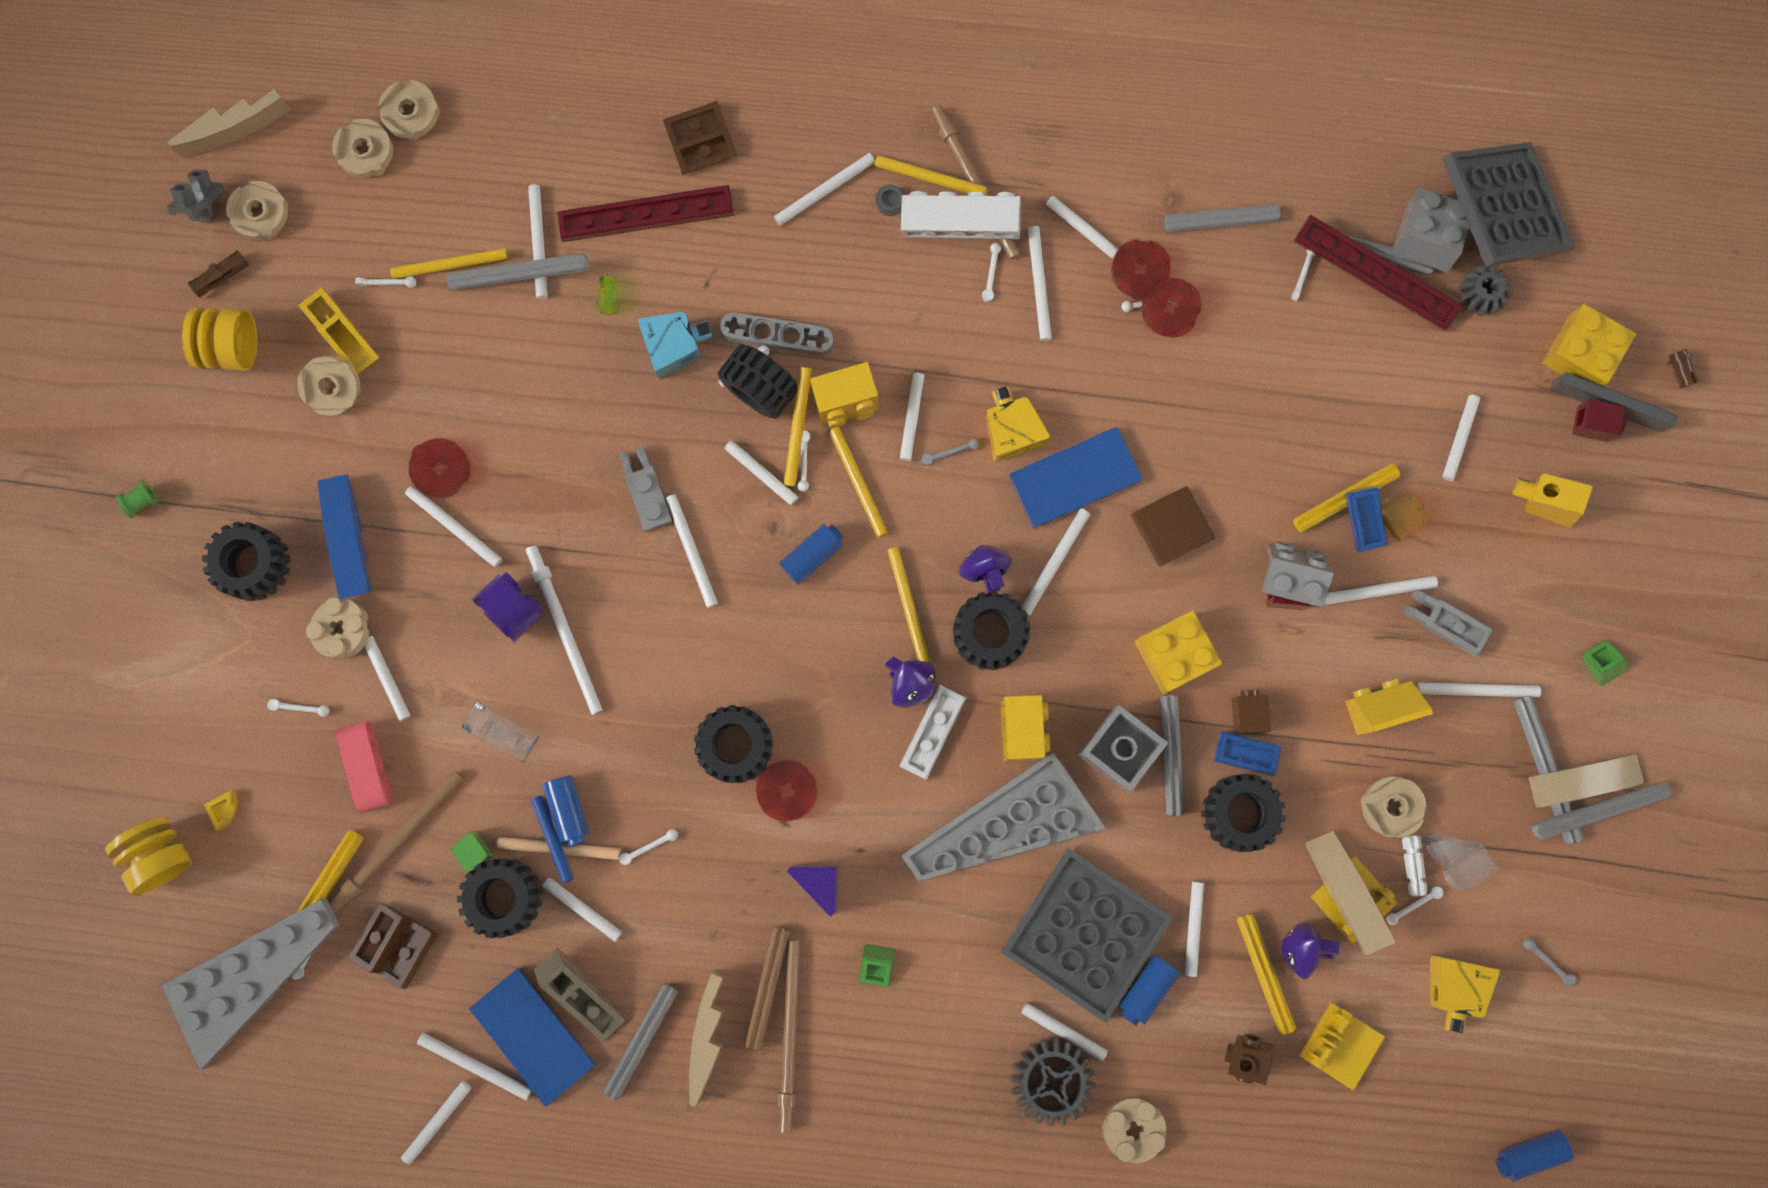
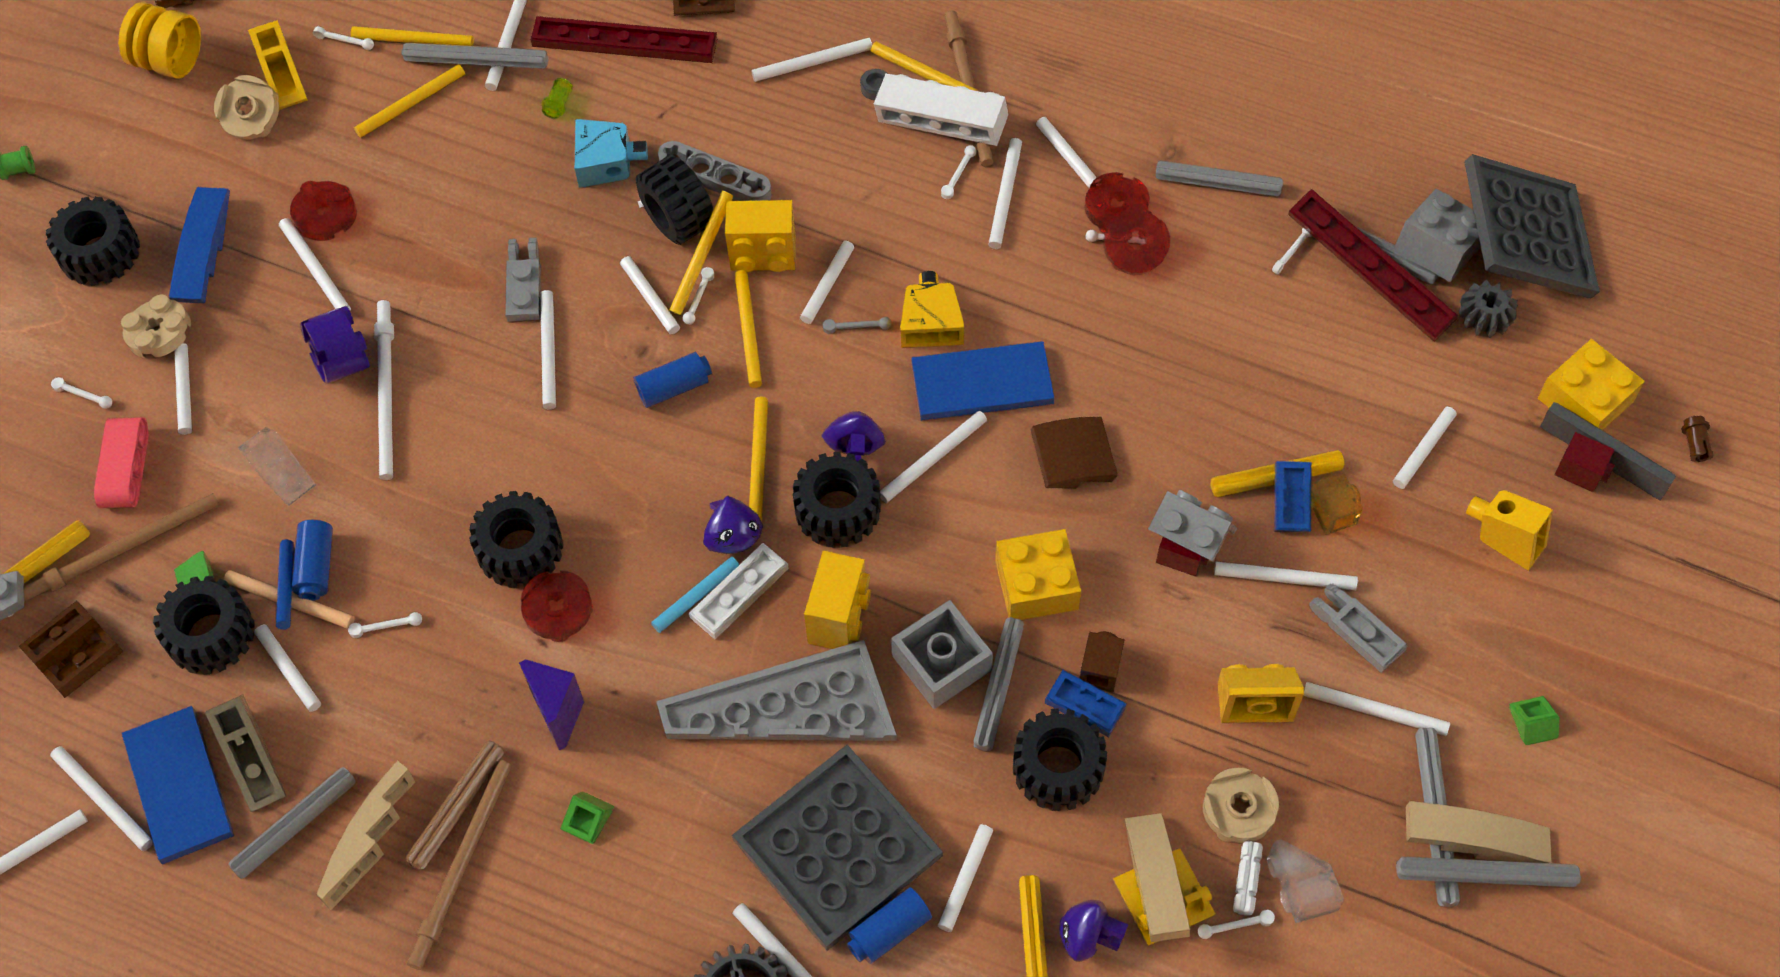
camera: 15 degrees right, 20 degrees down
(473, 332) = (409, 101): none -> yellow bar
(898, 746) = (694, 595): none -> medium azure bar

